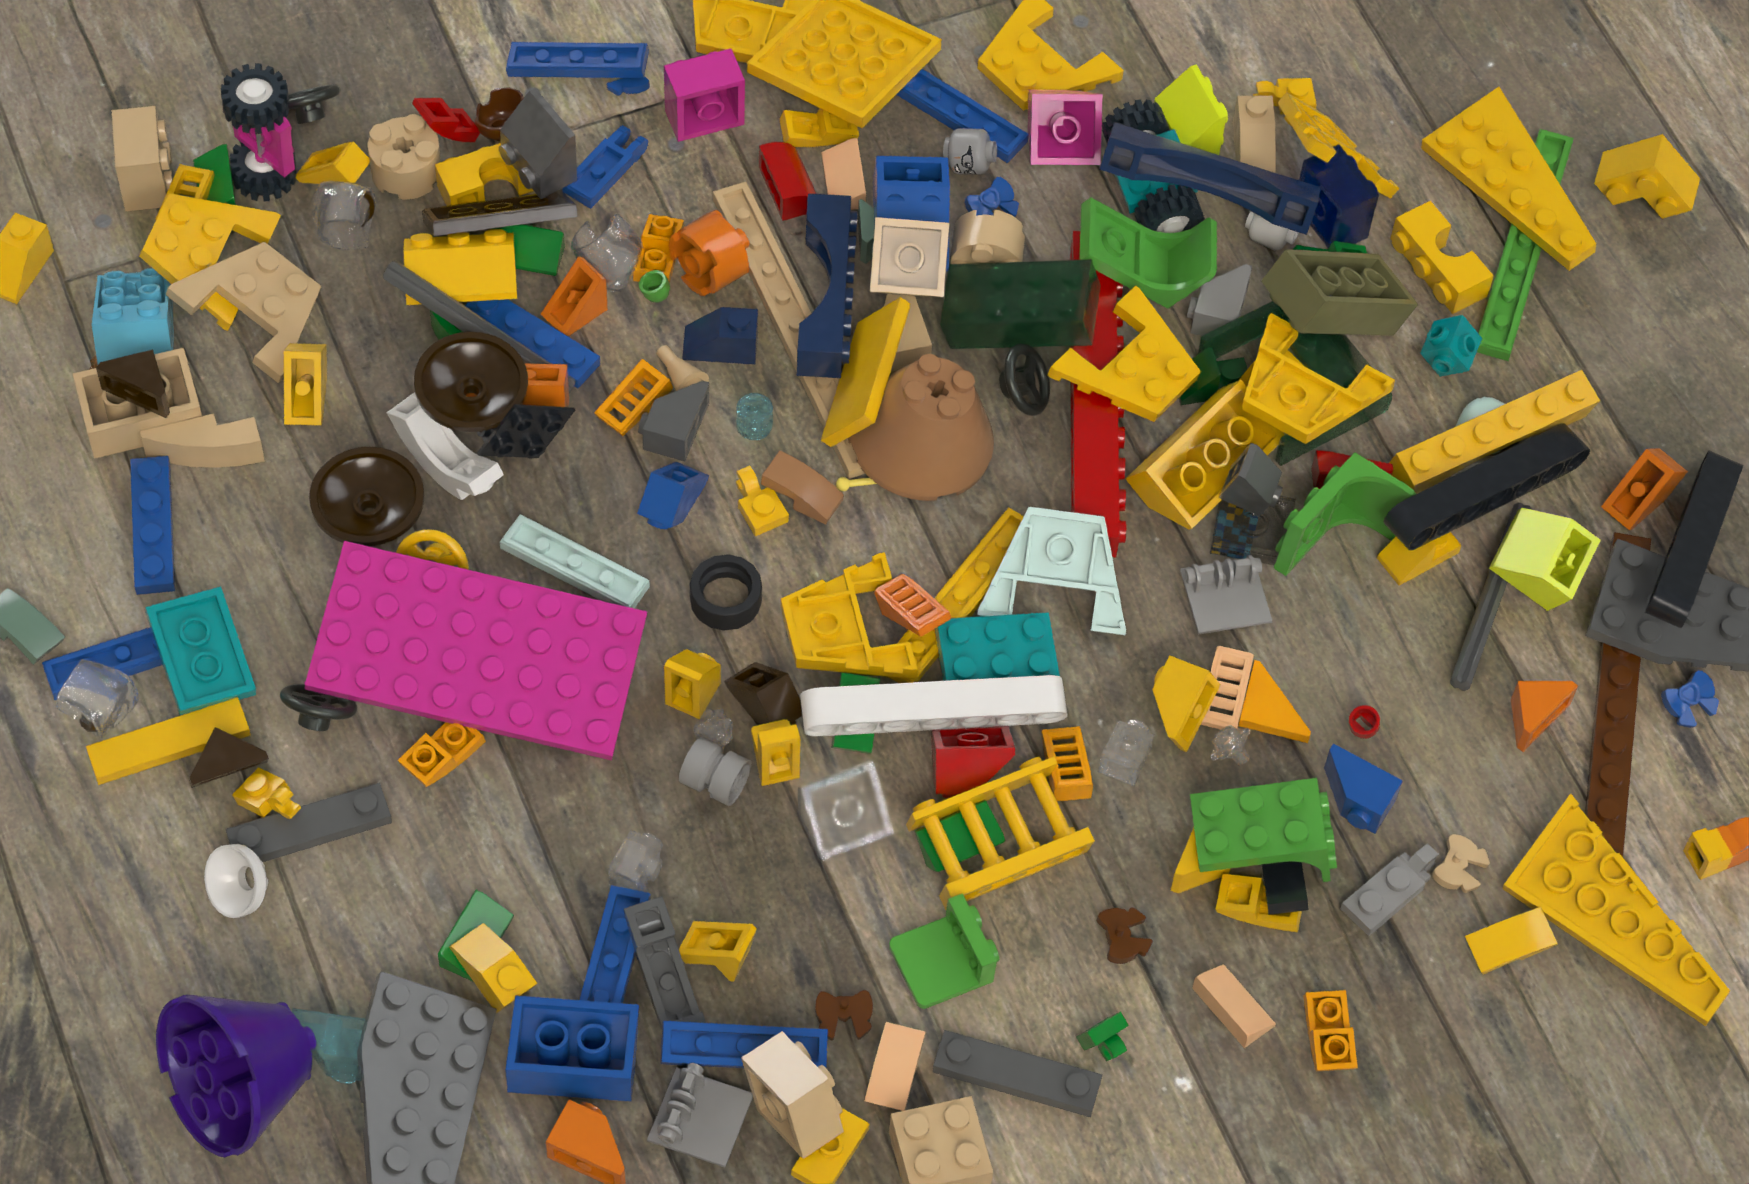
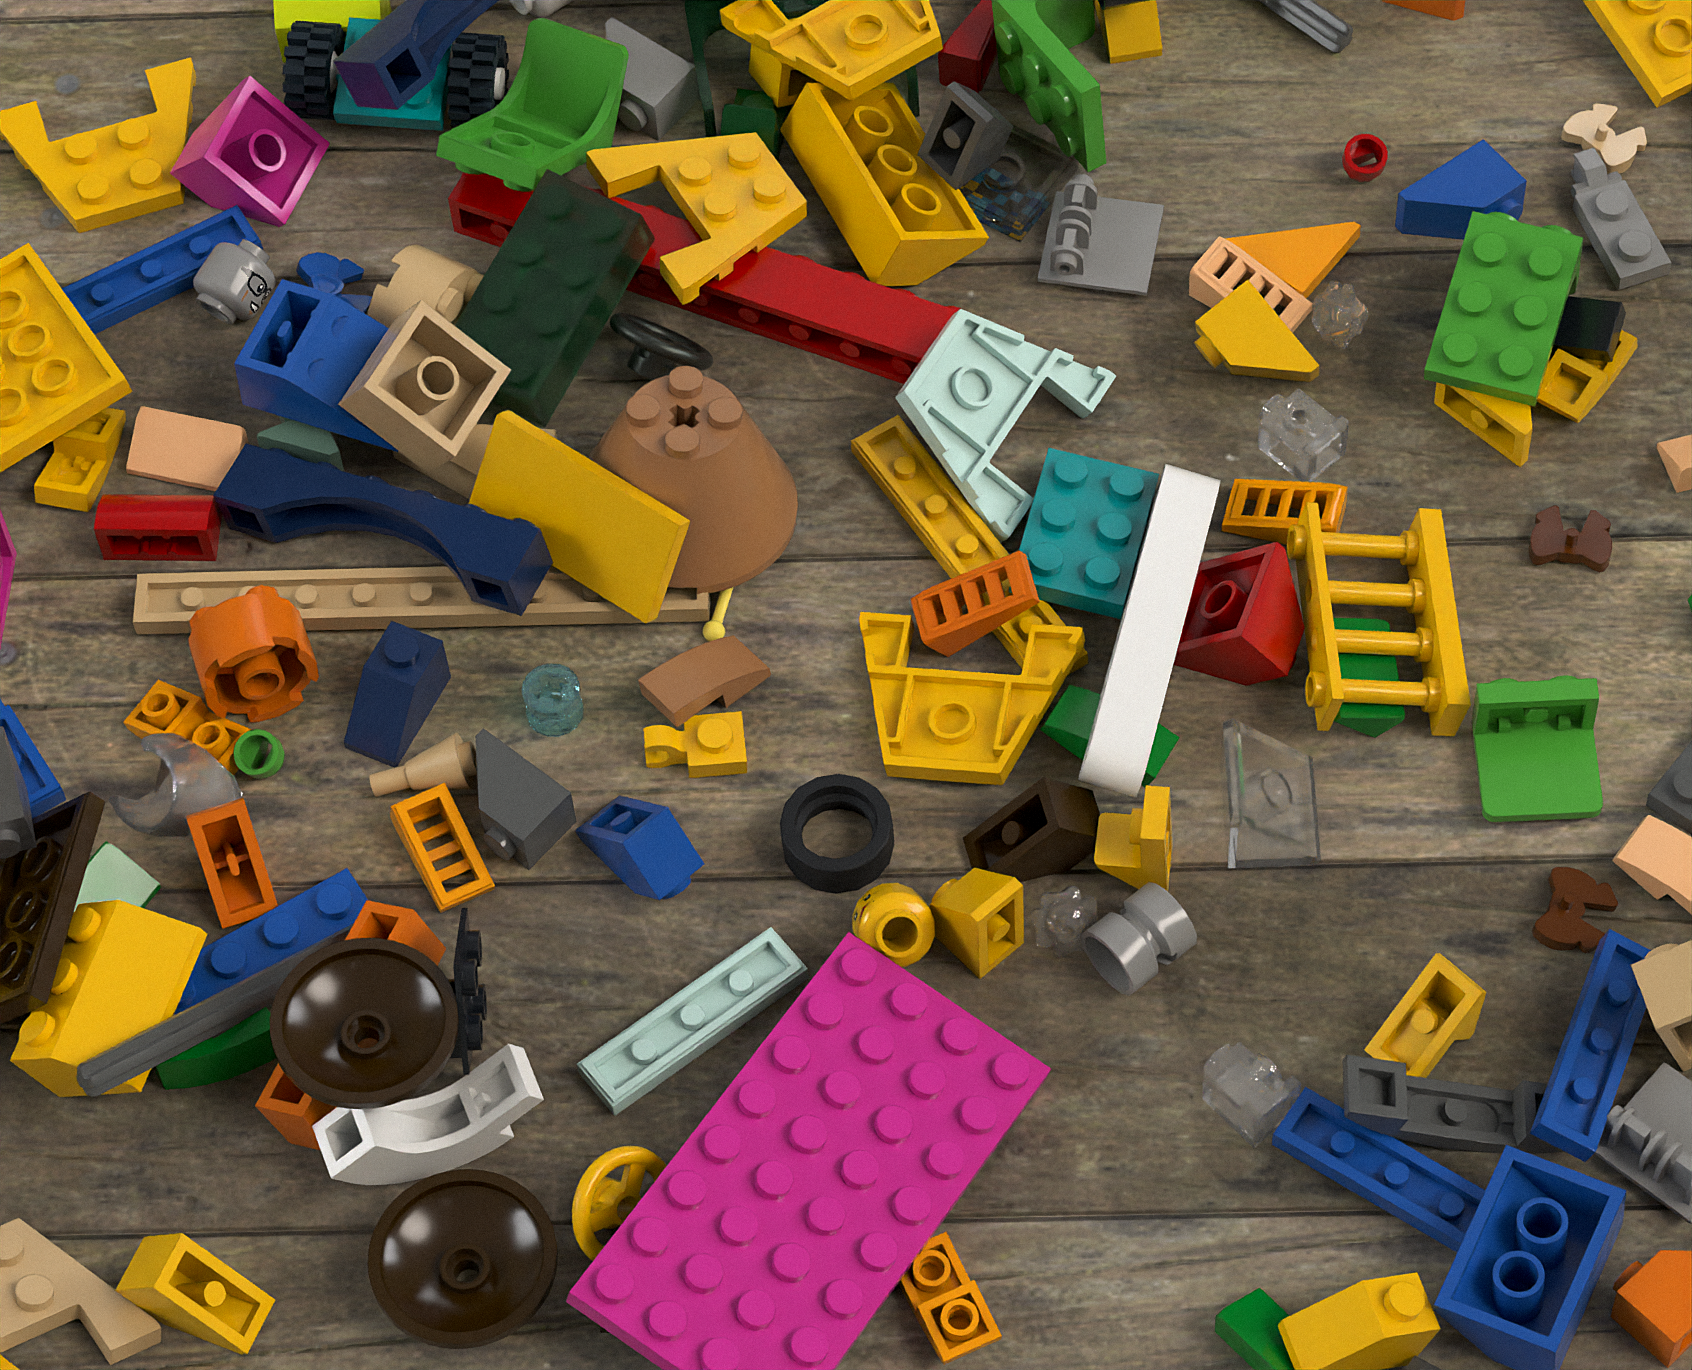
camera: 60 degrees left, 0 degrees up
(668, 635) = (894, 923): none -> yellow head

